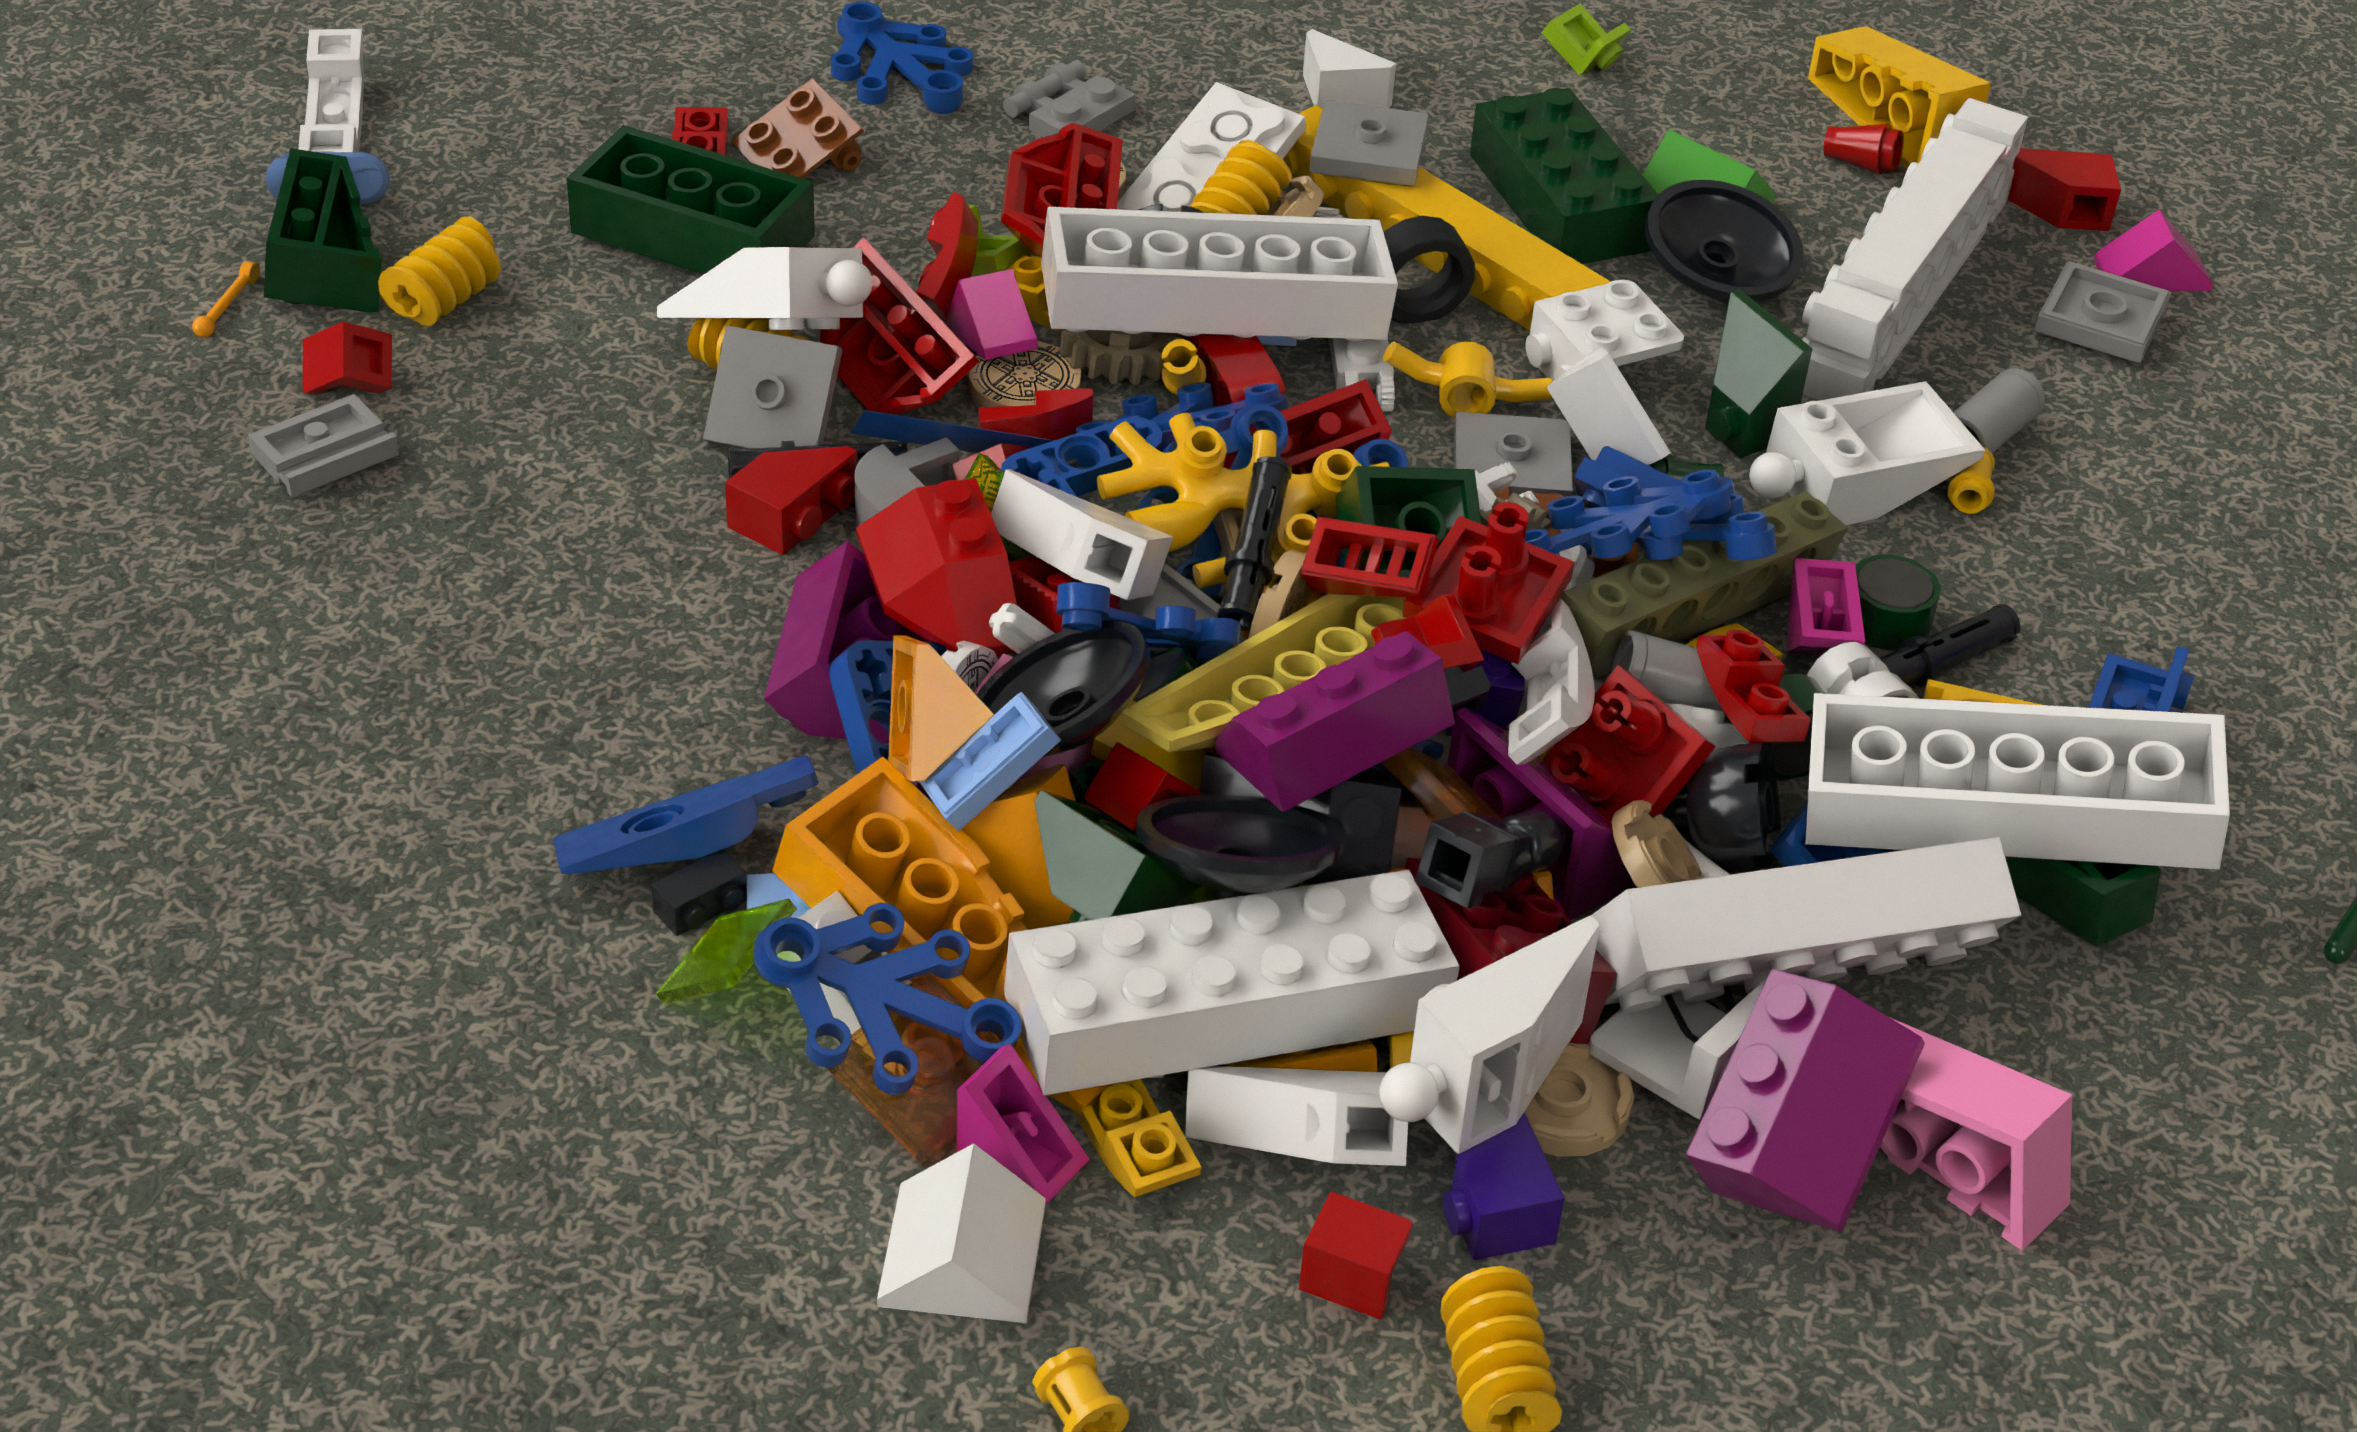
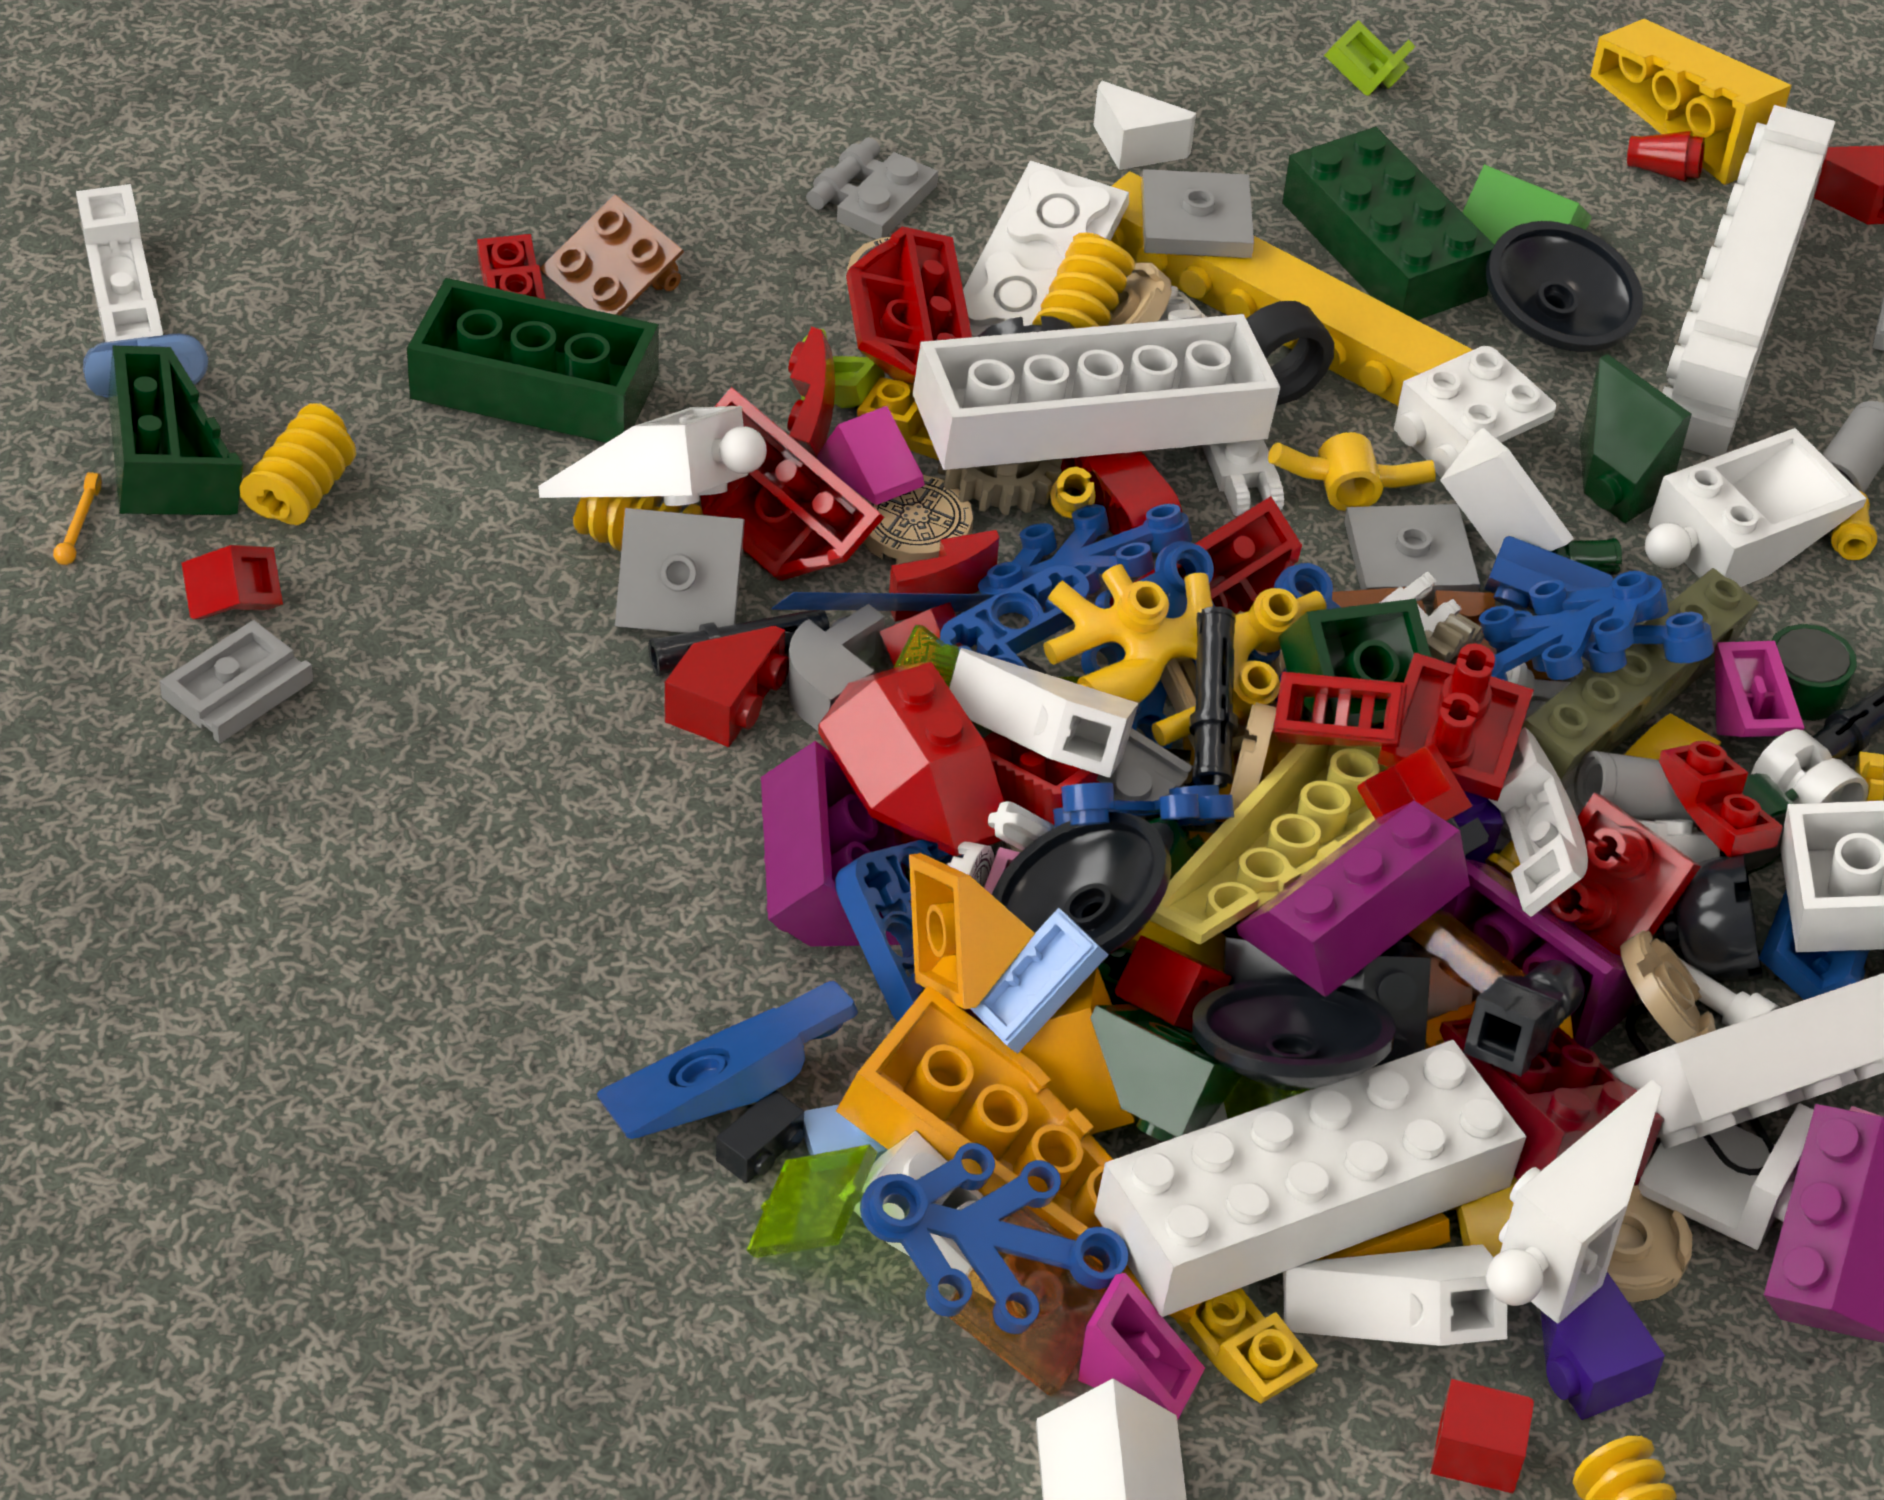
camera: 10 degrees left, 5 degrees up
(864, 24) = (641, 117): blue plant -> none

